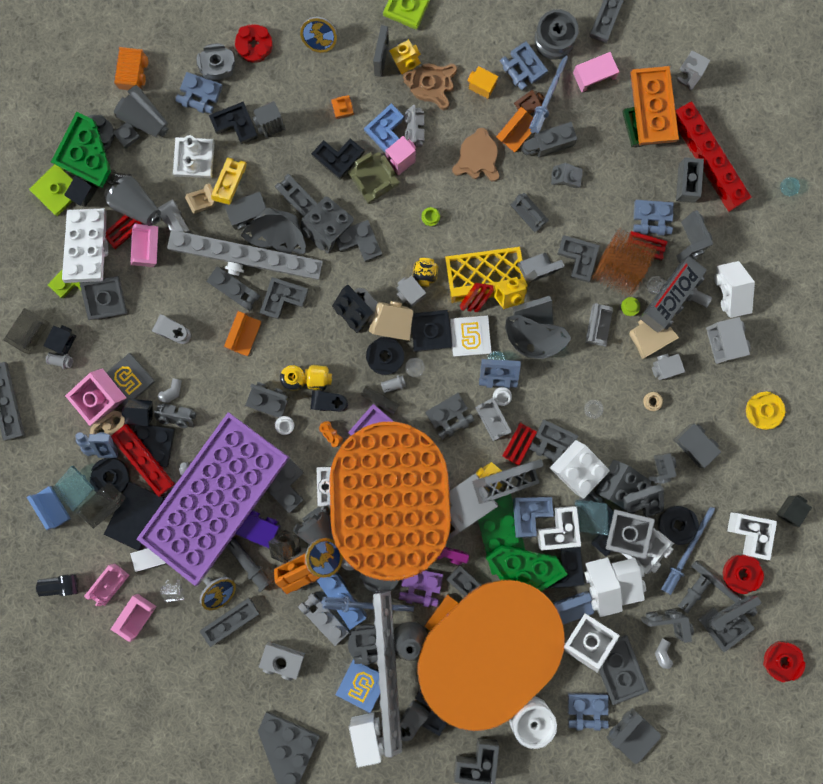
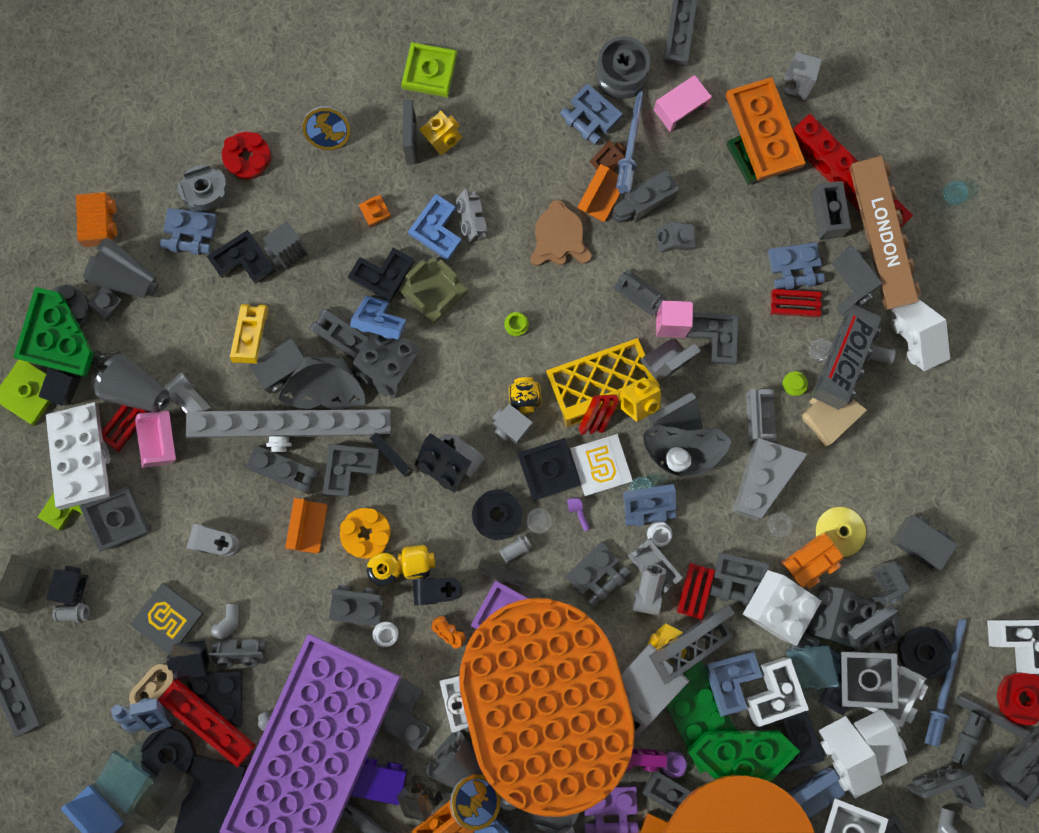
camera: 15 degrees left, 5 degrees down
(95, 396) = (128, 651): bright pink brick -> none
(193, 157) = (197, 313): white plate -> none
(201, 199) = (218, 364): tan bracket -> none
(276, 342) = (352, 526): none -> light orange plate
(316, 295) = (393, 457): none -> black tile
(323, 188) = (372, 318): none -> medium blue plate
(360, 235) = (434, 367): dark grey plate -> none
(392, 320) = (496, 467): tan torso -> none
(401, 155) = (462, 254): bright pink brick -> none
(431, 82) = (479, 158): medium nougat tile -> none
(445, 361) = (576, 505): none -> medium lavender hand
(474, 565) = (675, 764): none -> medium lavender tile
(482, 82) = (544, 144): light orange brick -> none
(484, 438) = (649, 591): none -> light grey piece
(528, 344) = (678, 459): none -> white plate
(550, 238) = (674, 319): none -> bright pink panel
(590, 371) = (764, 477): none -> light grey wedge
(611, 440) = (813, 560): none -> orange brick
(624, 263) = (776, 330): dark orange piece -> none
(628, 425) = (838, 517): none -> light yellow dish
(659, 401) = (860, 496): tan plate -> none
(667, 366) = (861, 450): light grey brick -> none
(724, 205) = (884, 233): none -> medium nougat brick
(728, 340) = (930, 400): light grey brick -> none
(765, 410) = (997, 486): yellow tile -> none

